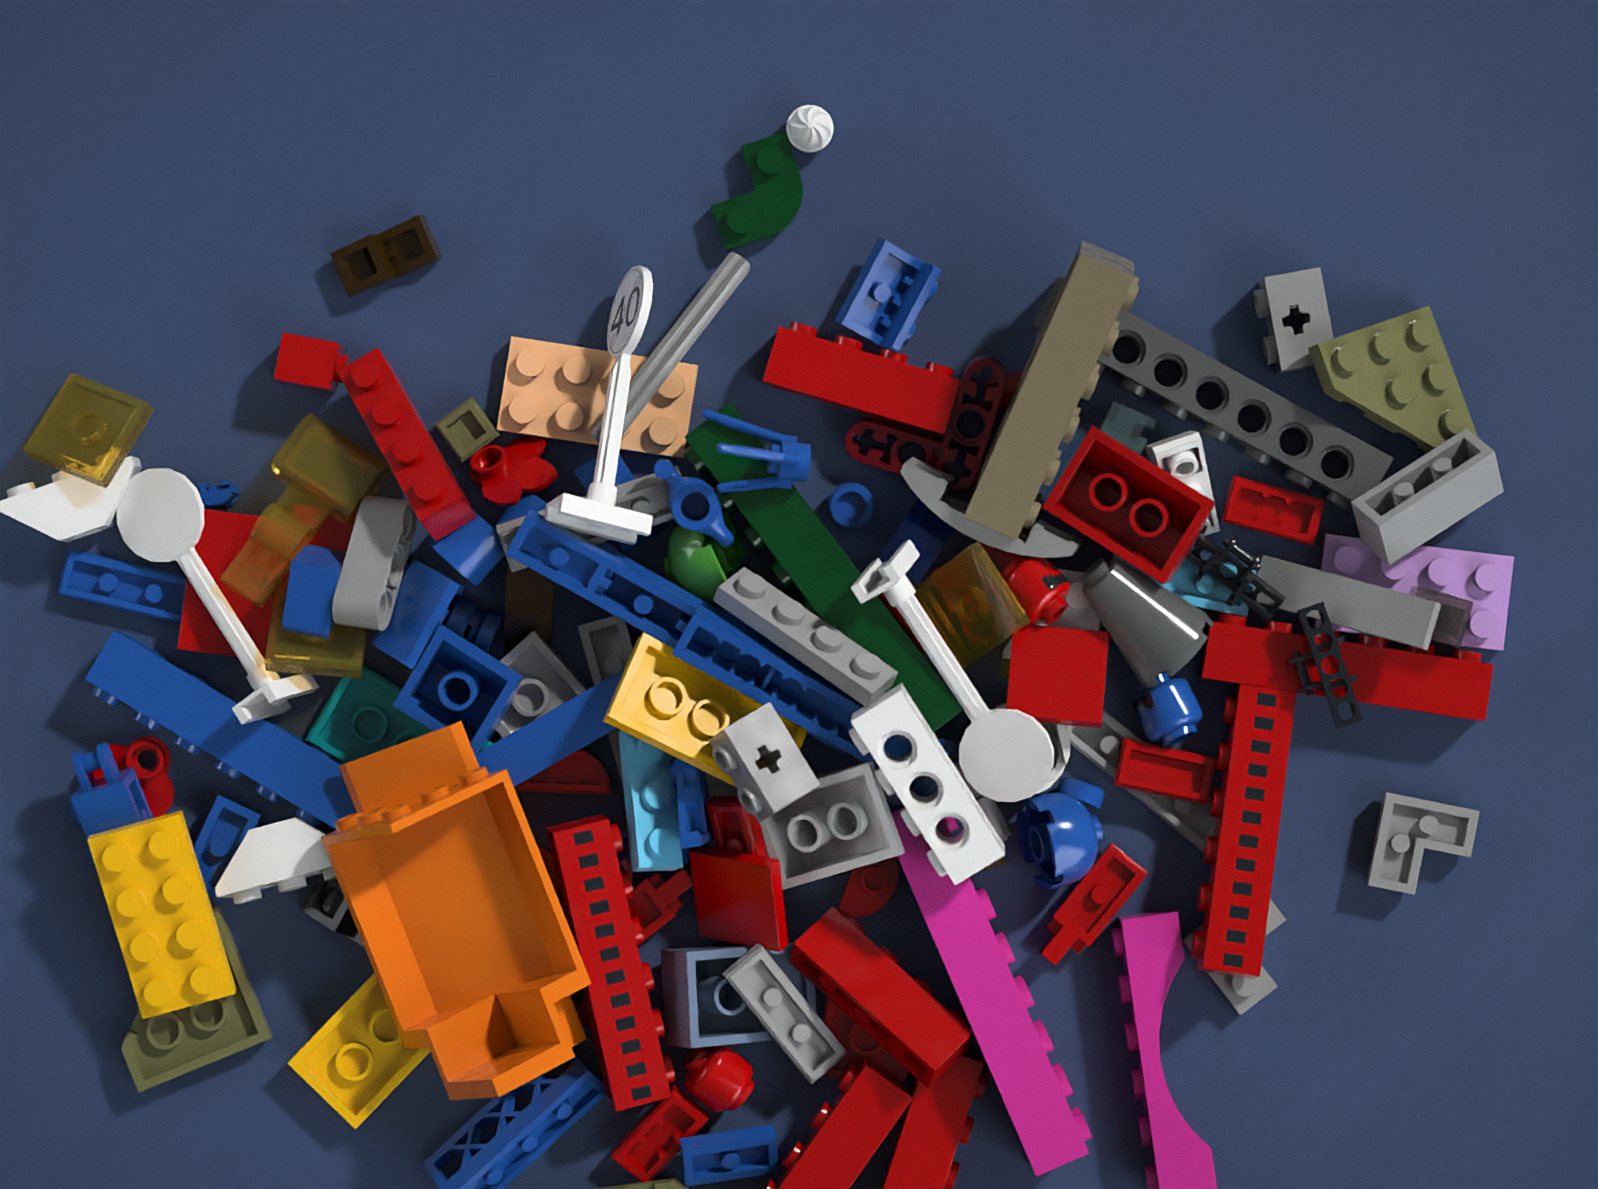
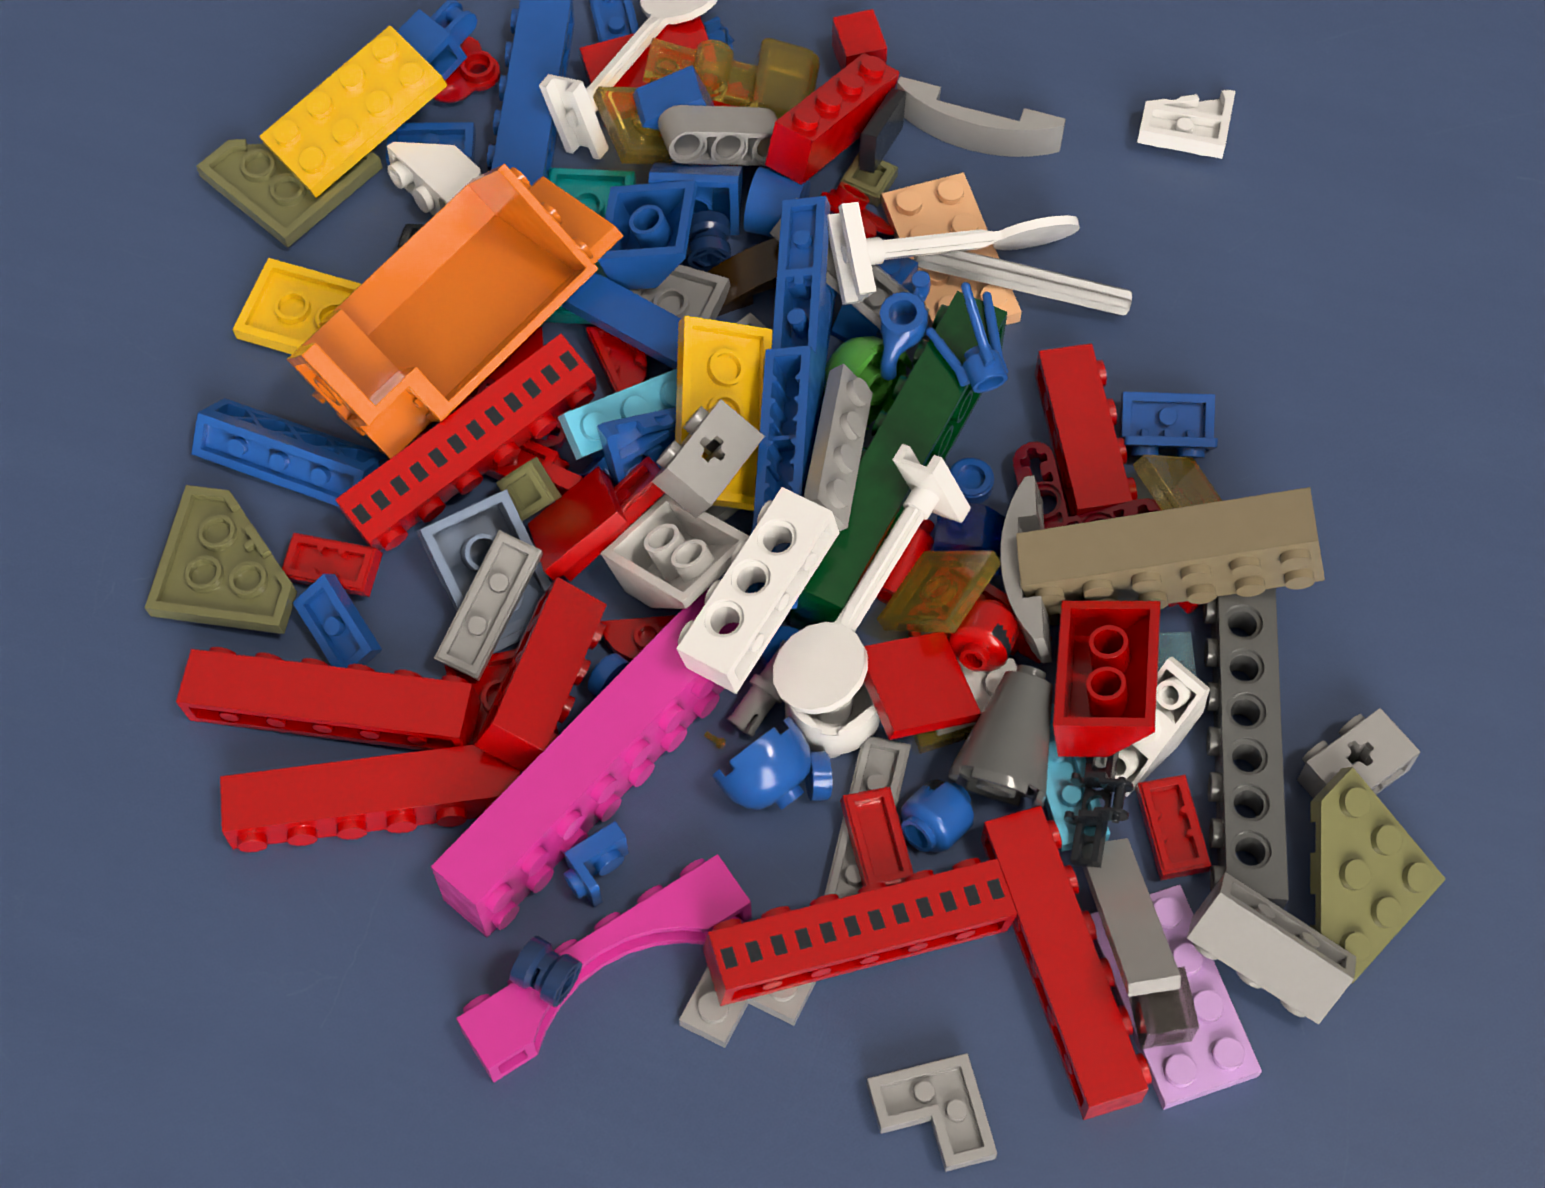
camera: 60 degrees right, 25 degrees down
(386, 255) = (970, 66): dark brown slope -> none
(431, 396) = (882, 130): none -> black tile
(500, 247) = (980, 131): none -> light grey slope
(562, 81) = (1188, 124): none -> white wing
(675, 924) = (529, 488): none -> olive tile
(718, 1077) = (406, 586): red head -> none
(773, 202) = (1196, 312): dark green plate -> none
(809, 128) = (1268, 311): white plate -> none
(897, 932) = (605, 672): none -> blue tile
(978, 325) = (1175, 481): none -> clear yellow tile
(1063, 1016) = (596, 854): none -> blue bracket
(1092, 903) = (713, 830): red hinge -> none
(1166, 1115) = (545, 971): none -> dark blue wheel
(1325, 682) = (1047, 943): black piece -> none

